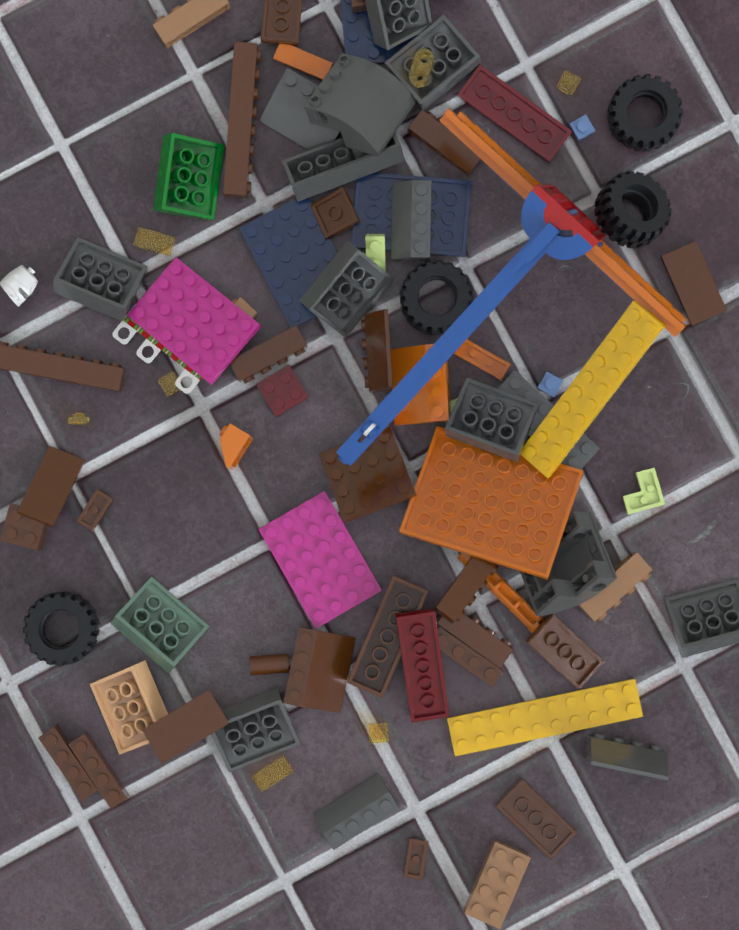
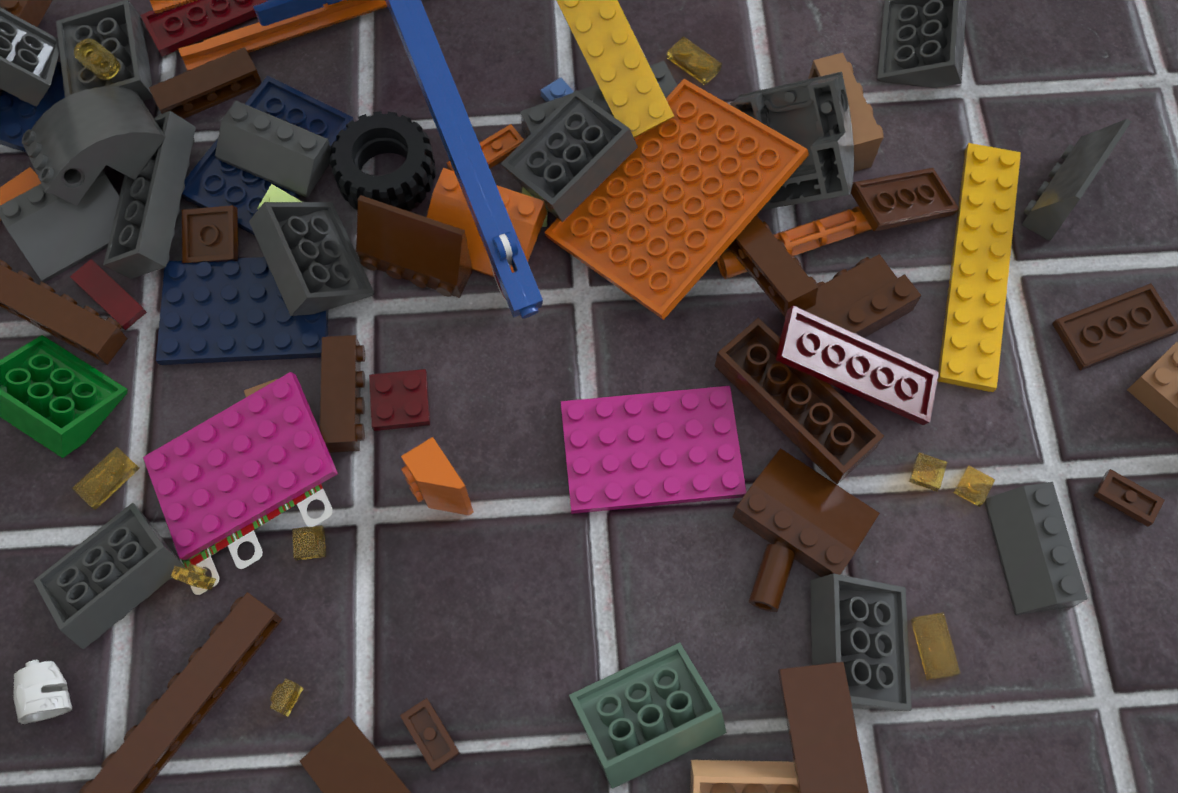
camera: 65 degrees left, 20 degrees down
(119, 331) = (194, 576): none -> clear yellow plate
(269, 169) = (108, 294): none -> dark red tile
(371, 481) = (570, 338): reddish brown plate -> none
(383, 763) = (974, 486): none -> clear yellow plate
(621, 465) = (694, 60): none -> clear yellow plate
(649, 494) = (742, 42): yellowish green plate -> none

